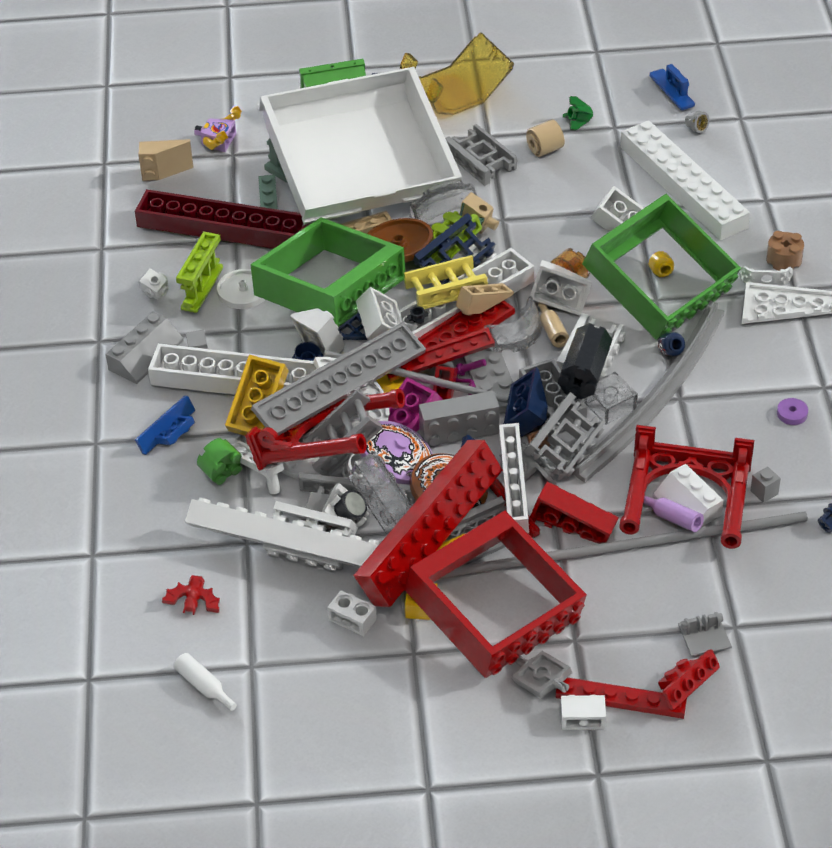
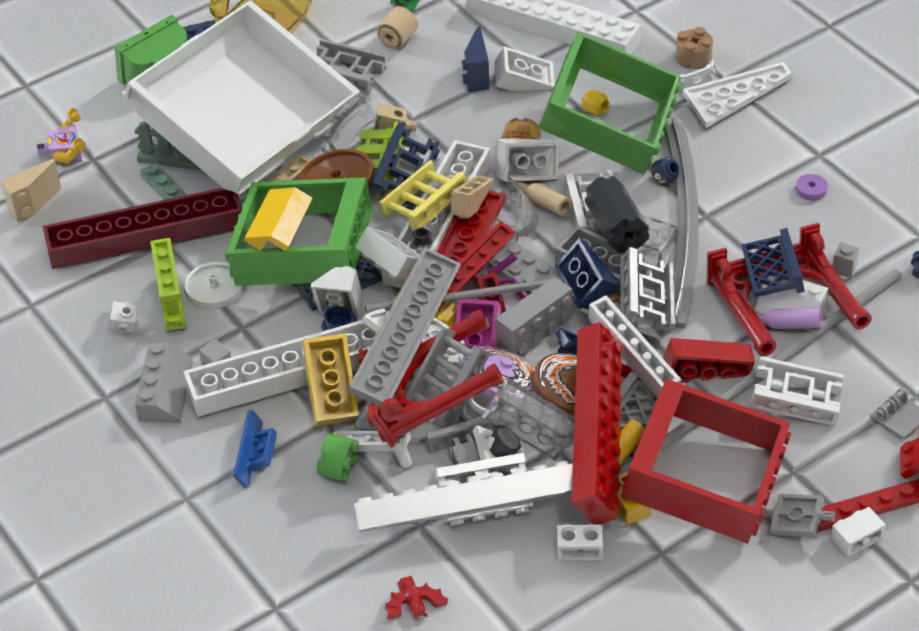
camera: 30 degrees left, 0 degrees up
(306, 252) = (278, 218): none -> yellow slope
(585, 190) = (476, 64): none -> dark blue slope
(619, 585) = (793, 403): none -> white fence
(701, 464) = (787, 261): none -> dark blue fence

